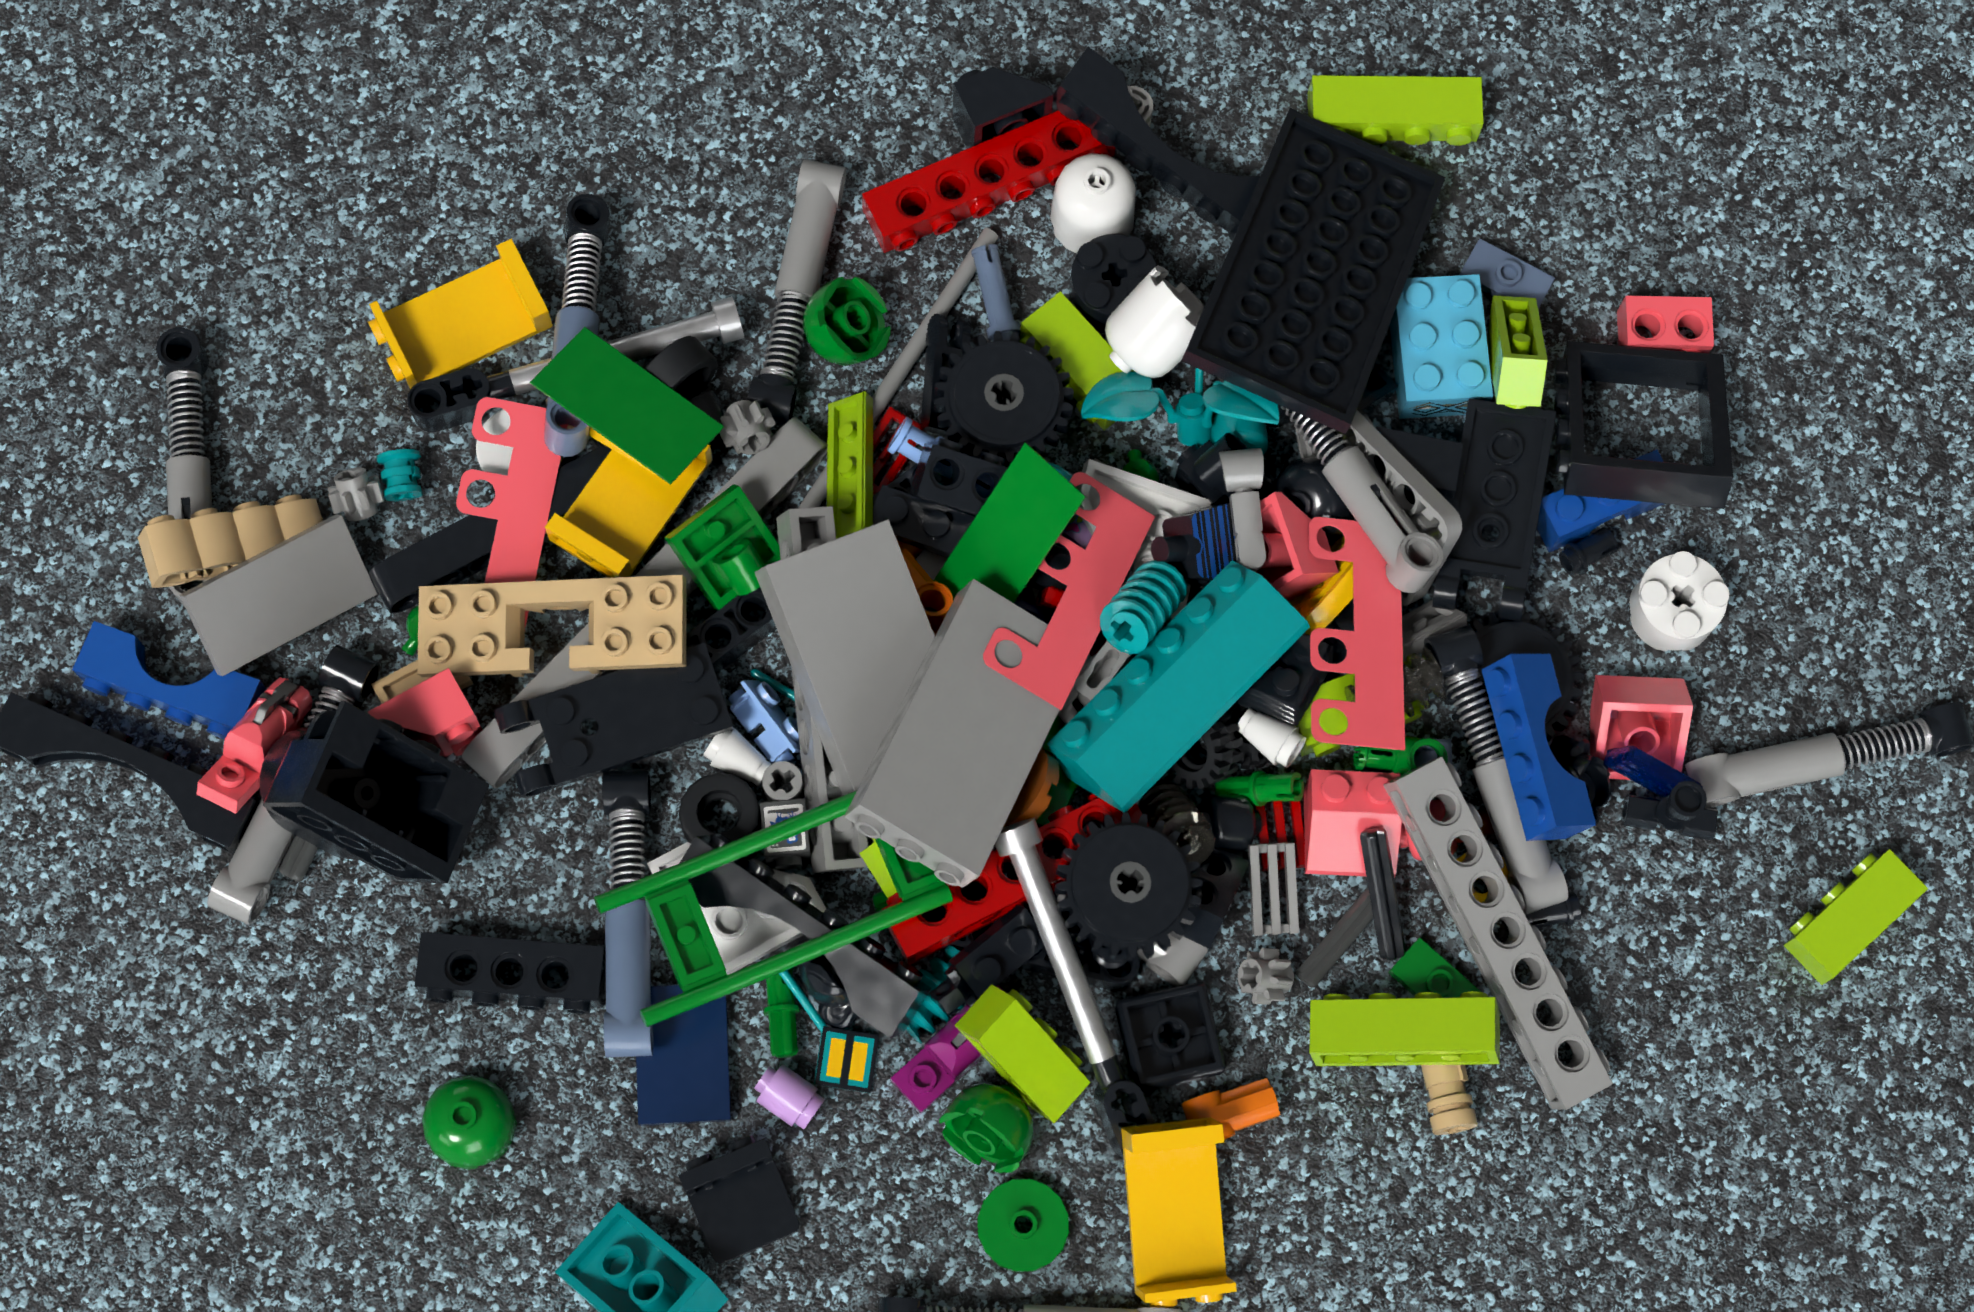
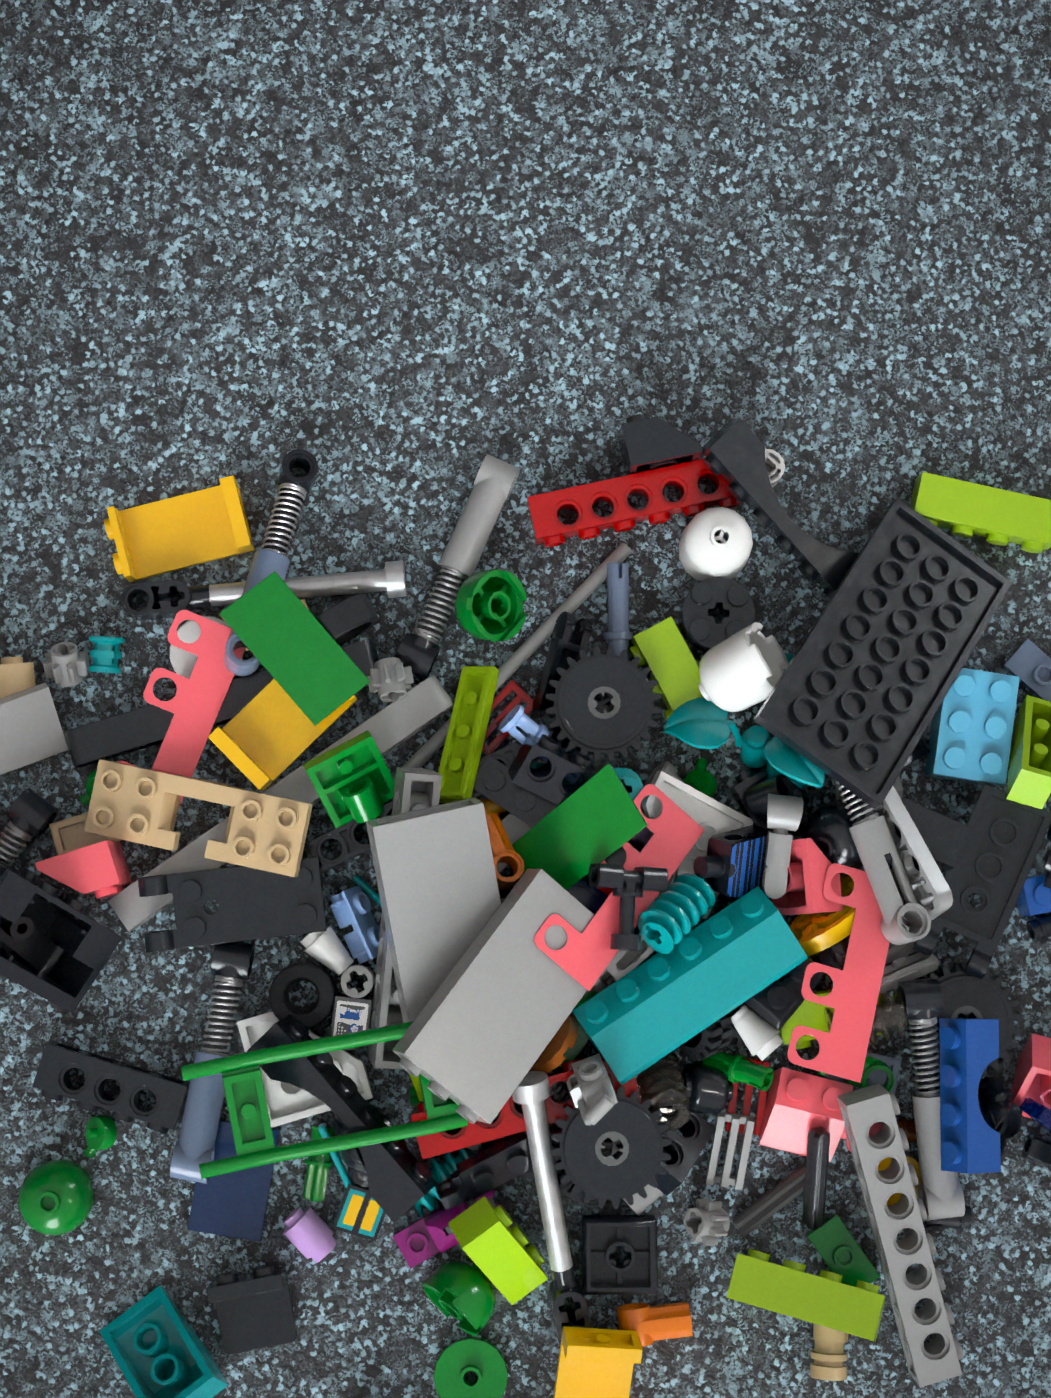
camera: 10 degrees right, 10 degrees up
(507, 1034) = (99, 1134): none -> green piece
(1080, 584) = (627, 886): none -> black bar
(1090, 818) = (591, 1089): none -> light grey piece

